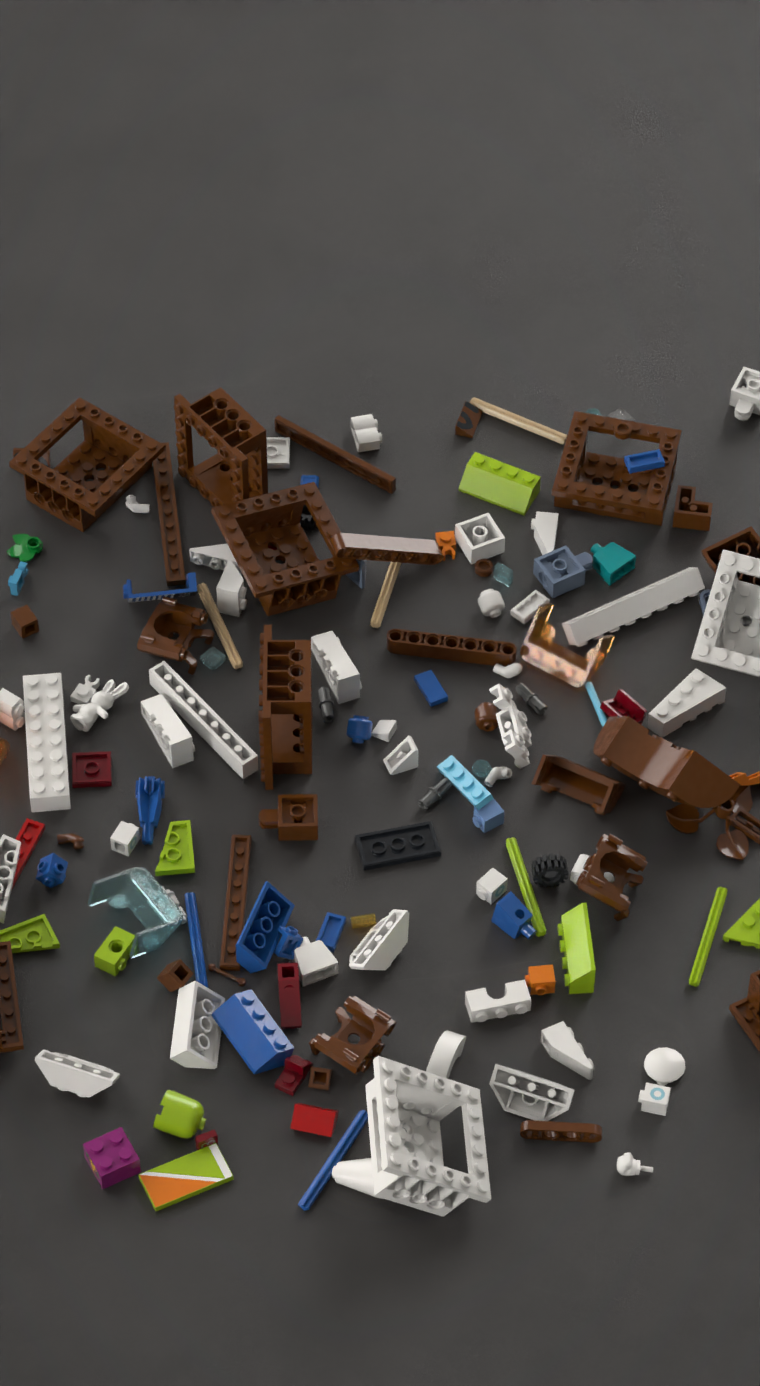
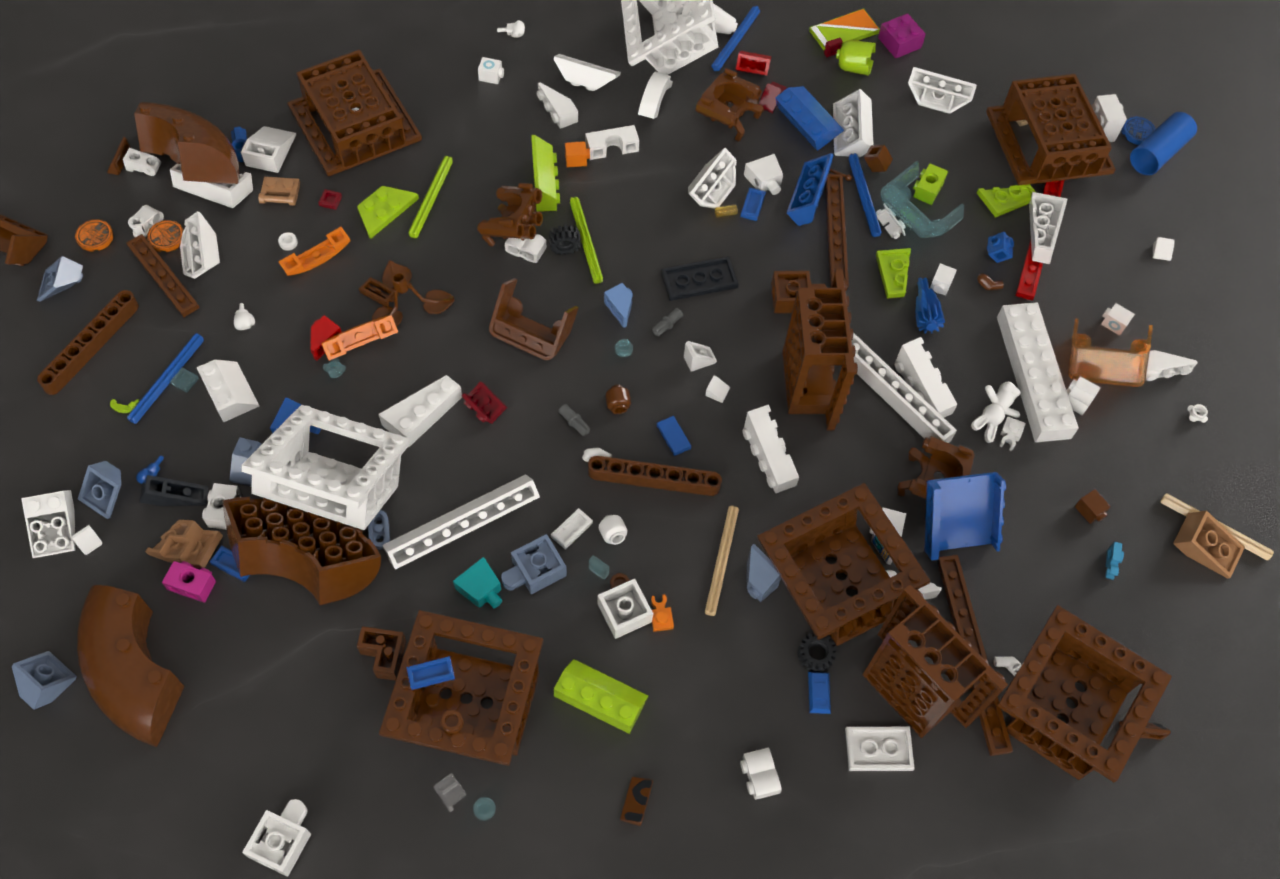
camera: 175 degrees right, 10 degrees up
(25, 547) = (1119, 606): green plate -> none
(91, 769) = (986, 352): dark red tile -> none
(213, 658) = (893, 469): clear light blue tile -> none
(219, 626) = (891, 503): tan axle -> none
(288, 943) = (788, 184): blue bracket -> none
(289, 995) = (783, 147): dark red slope -> none
(326, 705) = (776, 414): dark grey axle -> none
(335, 454) = (796, 739): reddish brown tile -> none
(359, 728) = (742, 382): blue head -> none
(386, 548) = (728, 566): reddish brown beam -> none
(465, 782) = (640, 322): medium azure plate -> none
(491, 886) = (616, 235): white brick -> none
(497, 773) = (611, 342): white arm -> none
(512, 726) = (593, 375): white bracket -> none
(513, 917) = (598, 203): blue torso -> none
(519, 421) = (577, 802): tan axle -> none
(545, 530) = (550, 621): white slope -> none
(553, 658) = (540, 463): clear orange windscreen -> none
(561, 1131) = (565, 50): reddish brown beam -> none
(596, 703) = (508, 414): medium azure bar -> none
(661, 766) = (454, 323): reddish brown brick -> none
(664, 1065) = (480, 99): white dish -> none

